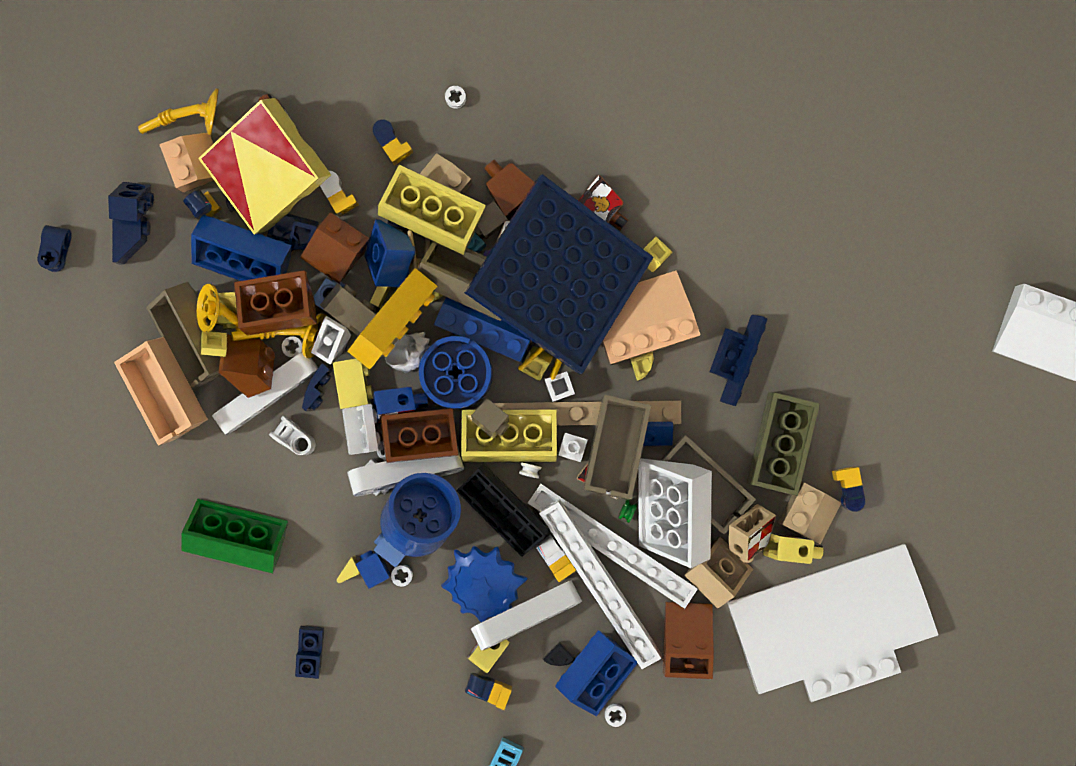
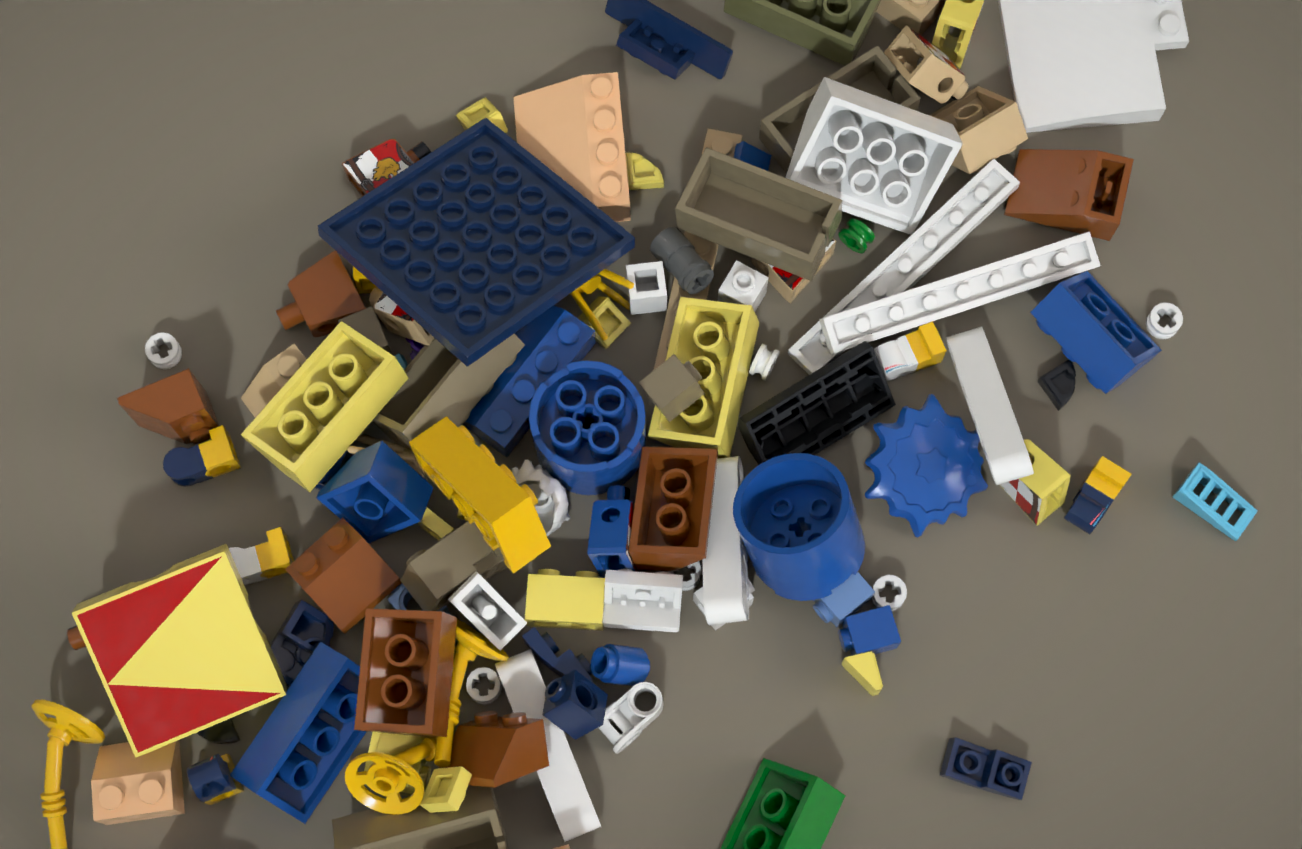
camera: 80 degrees left, 15 degrees down
(288, 404) = (575, 704): none -> dark blue brick
(320, 425) = (620, 664): none -> blue brick
(413, 118) = (173, 408): none -> dark orange slope
(581, 404) = (682, 260): none -> dark grey piece

